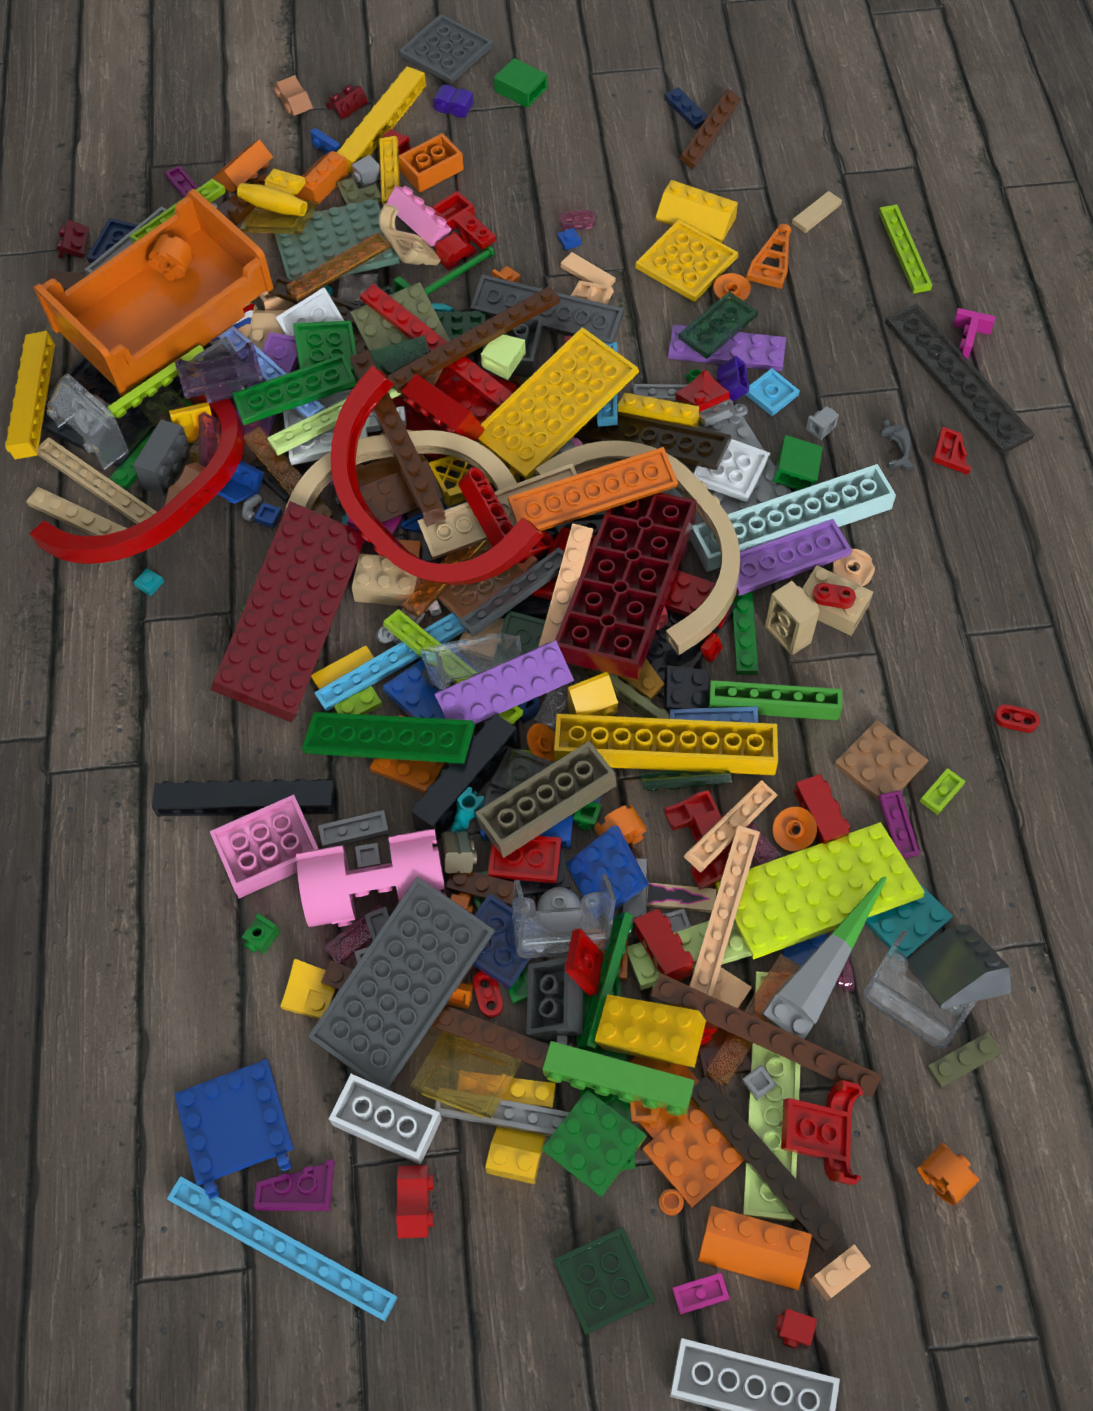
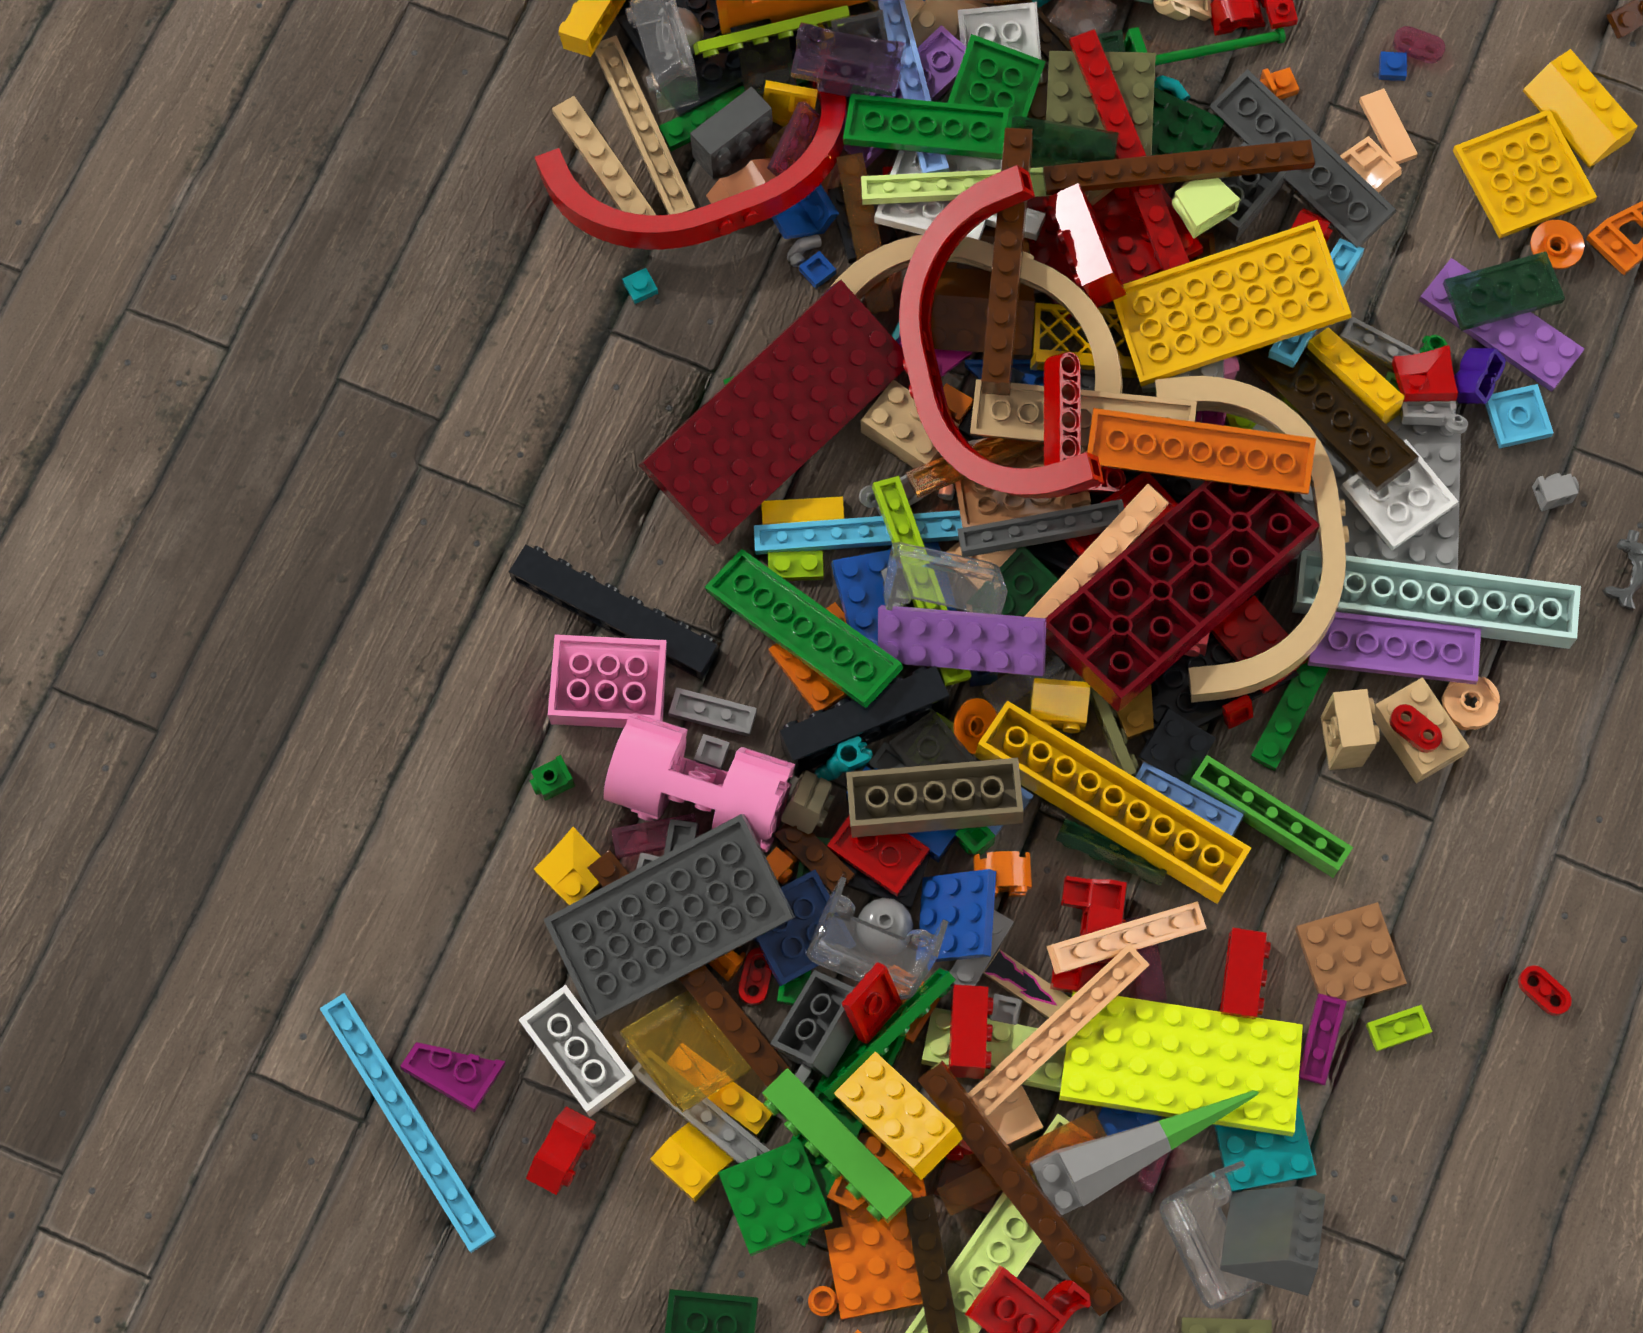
camera: 30 degrees right, 10 degrees up
(233, 1124) = (423, 968): blue plate -> none
(759, 1082) = (986, 1233): light grey tile -> none
(786, 823) = (1188, 974): orange dish -> none
(797, 463) = (1486, 532): green brick -> none

